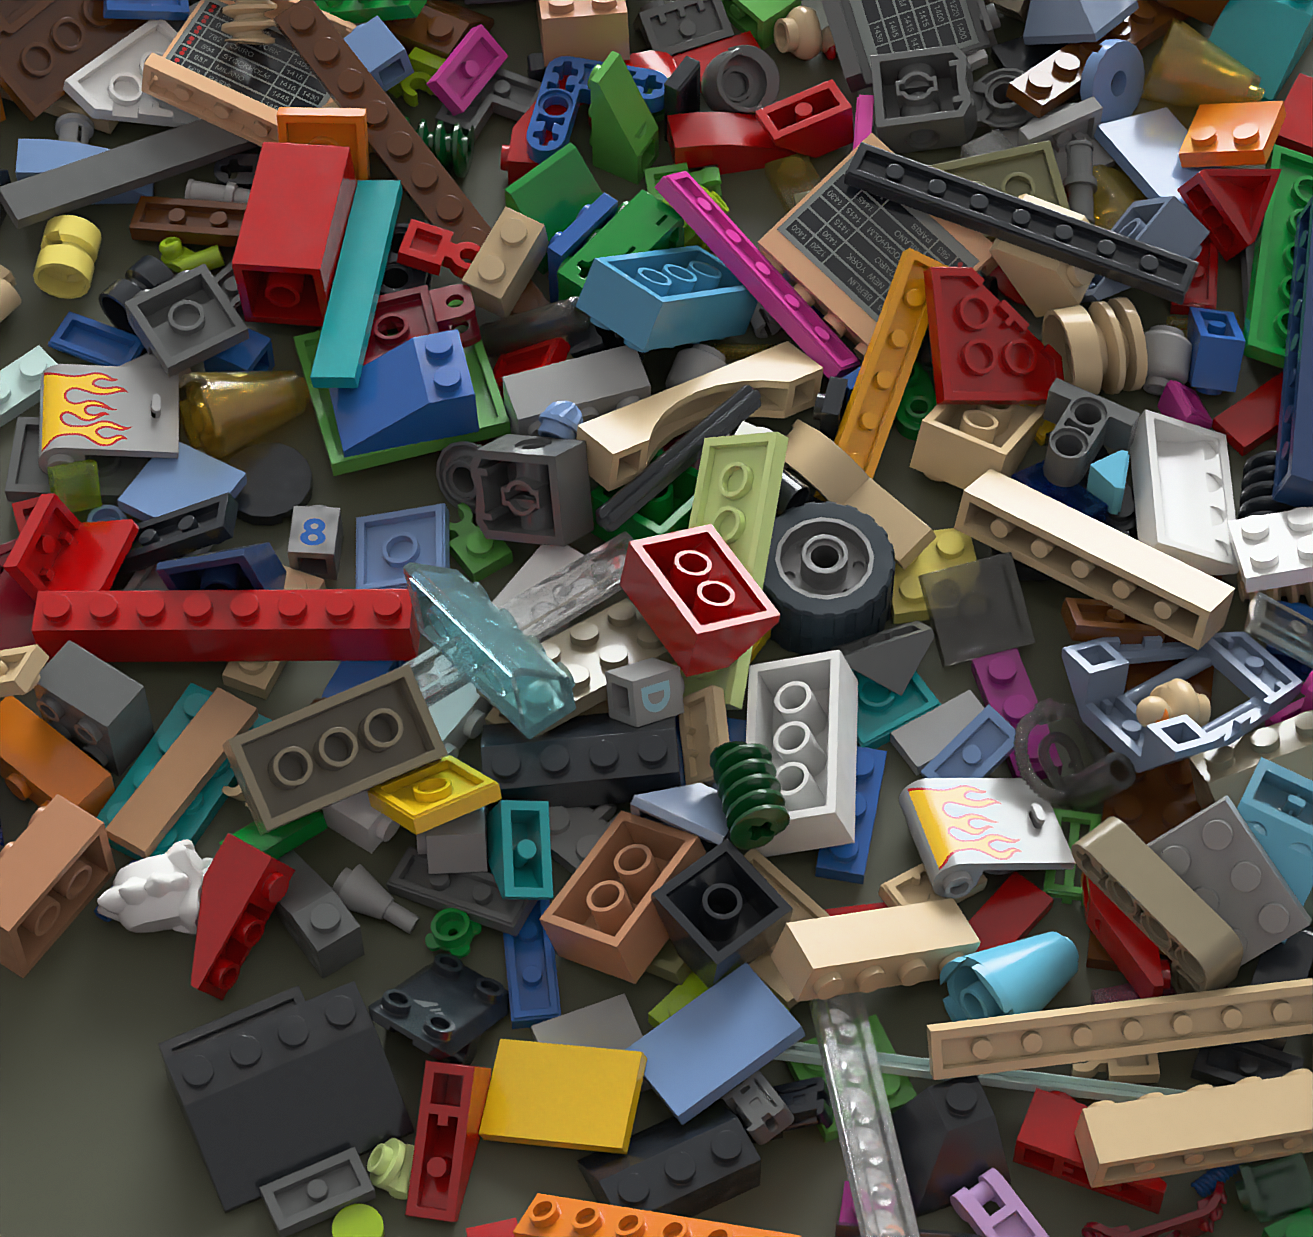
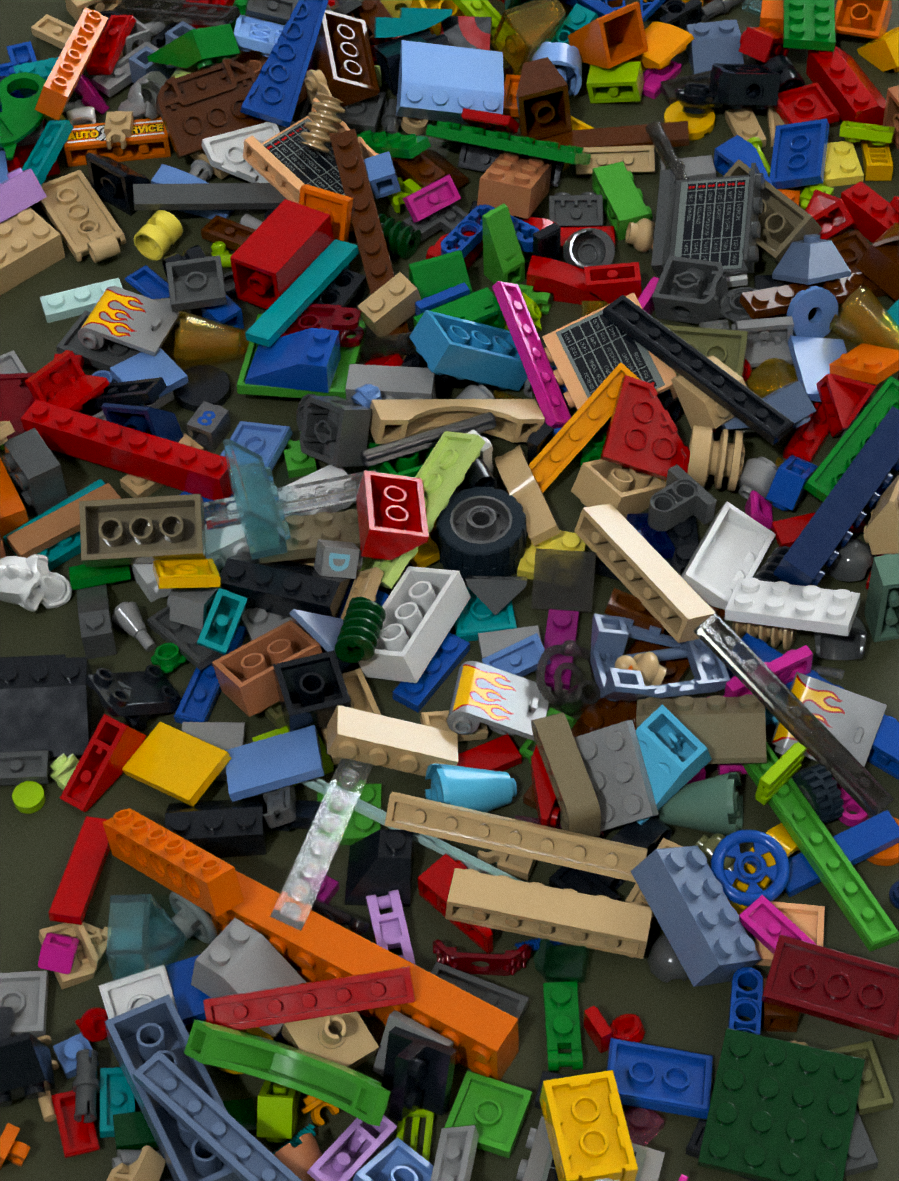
camera: 25 degrees right, 5 degrees down
(76, 484) = (91, 353): clear neon green tile -> none
(234, 907) = (50, 601): red slope -> none
(432, 248) = (352, 285): red plate -> none
(1080, 182) = (760, 364): dark grey pin -> none
(1108, 479) = (682, 533): medium azure slope -> none

